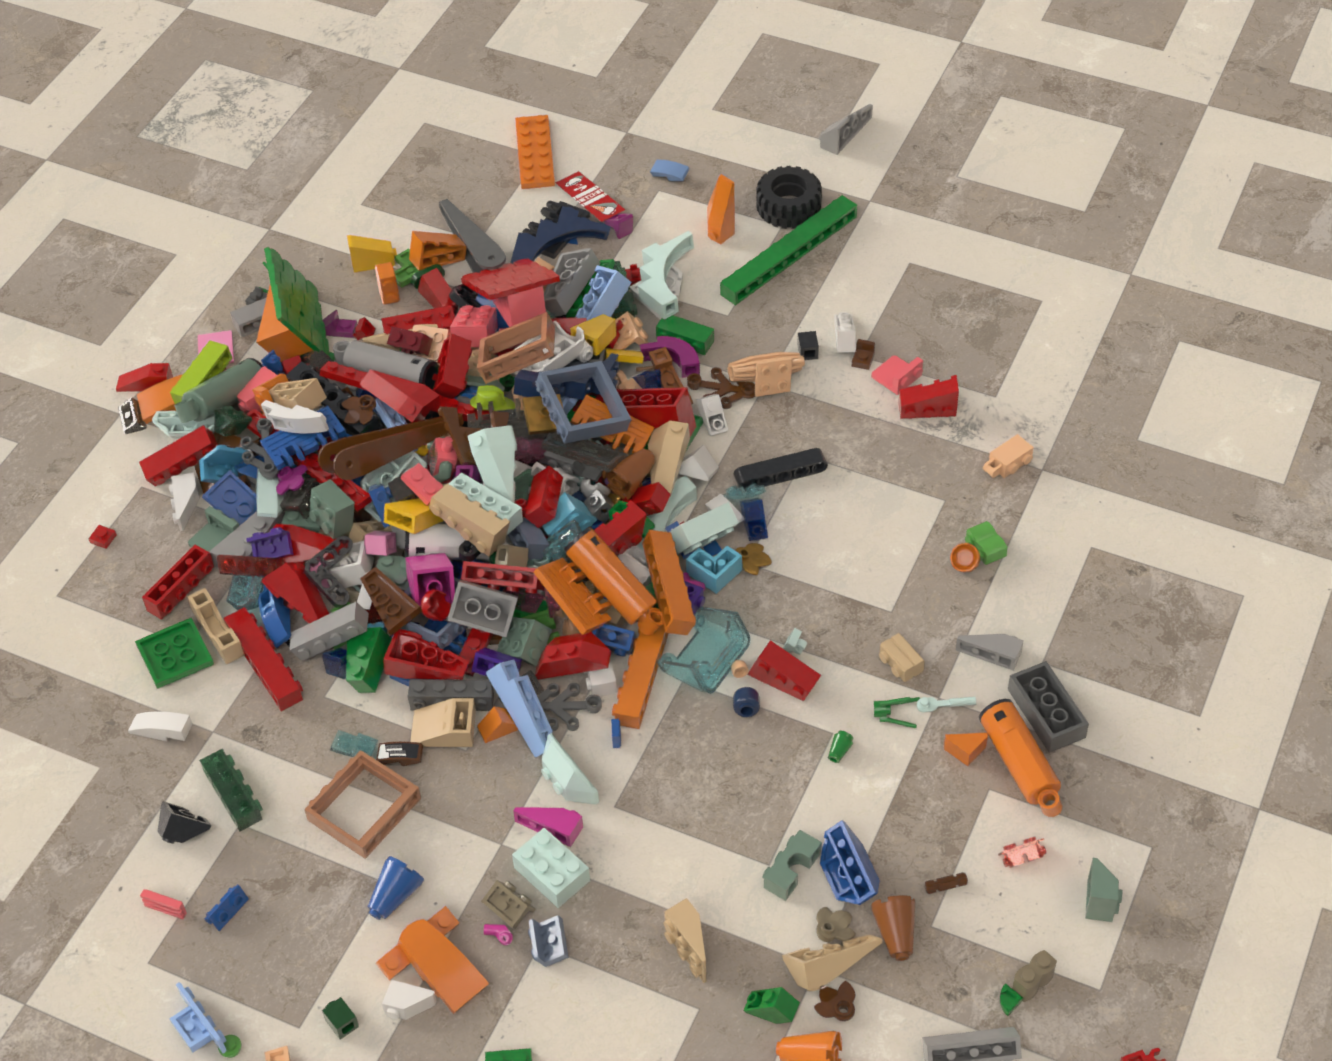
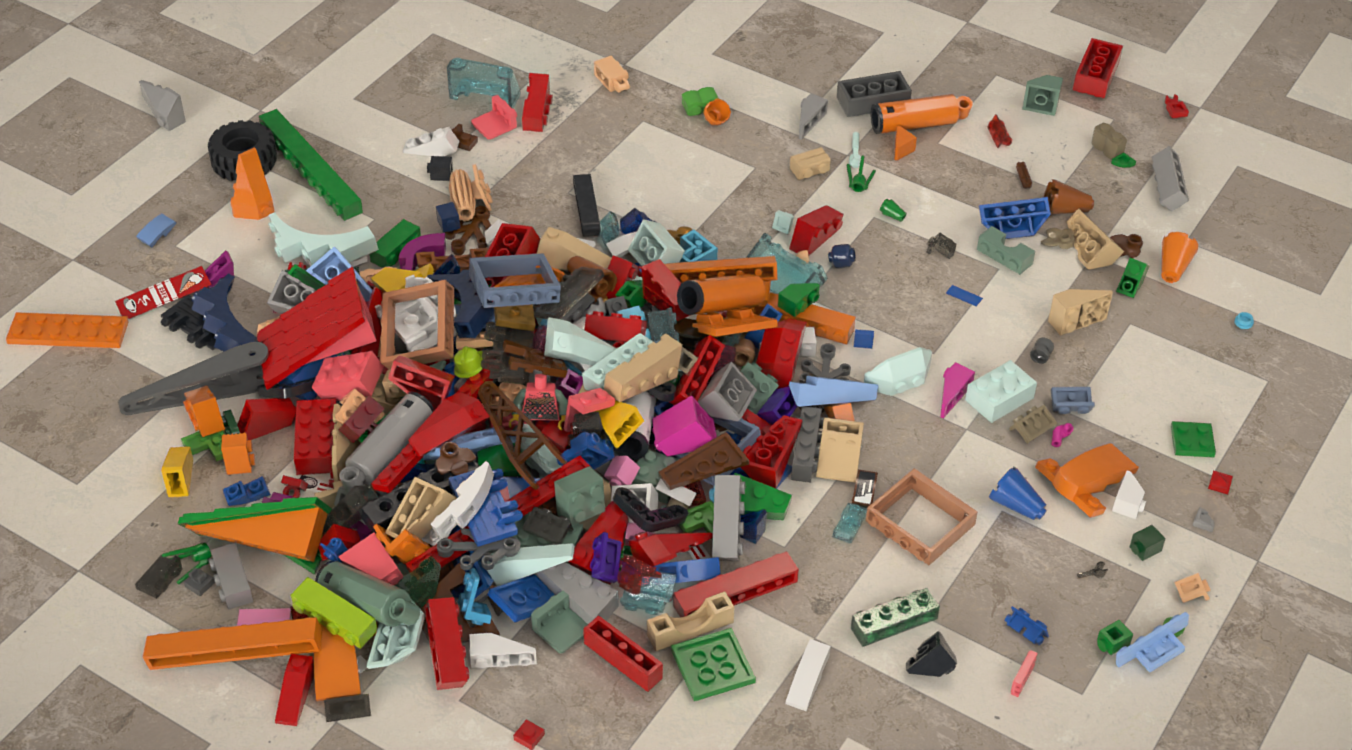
camera: 85 degrees left, 5 degrees down
(180, 326) = (233, 643): none -> orange brick
(208, 985) = (1114, 637): none -> green brick
(256, 274) = (159, 576): none -> clear smoke bracket
(290, 478) = (531, 528): magenta plate -> none
(302, 968) = (1098, 571): none -> clear smoke hand
(356, 304) = (241, 494): none -> blue slope
(435, 606) = (722, 424): red hair -> none
(625, 908) = (1041, 351): none -> dark grey wheel
(646, 656) = (798, 297): none -> green slope
(714, 831) = (964, 295): none -> blue sticker
(720, 359) = (447, 217): none -> dark blue brick
(787, 800) = (941, 244): none -> clear smoke bracket
(953, 354) = (482, 78): none -> clear light blue windscreen
(1189, 958) = (1097, 68): none -> red brick

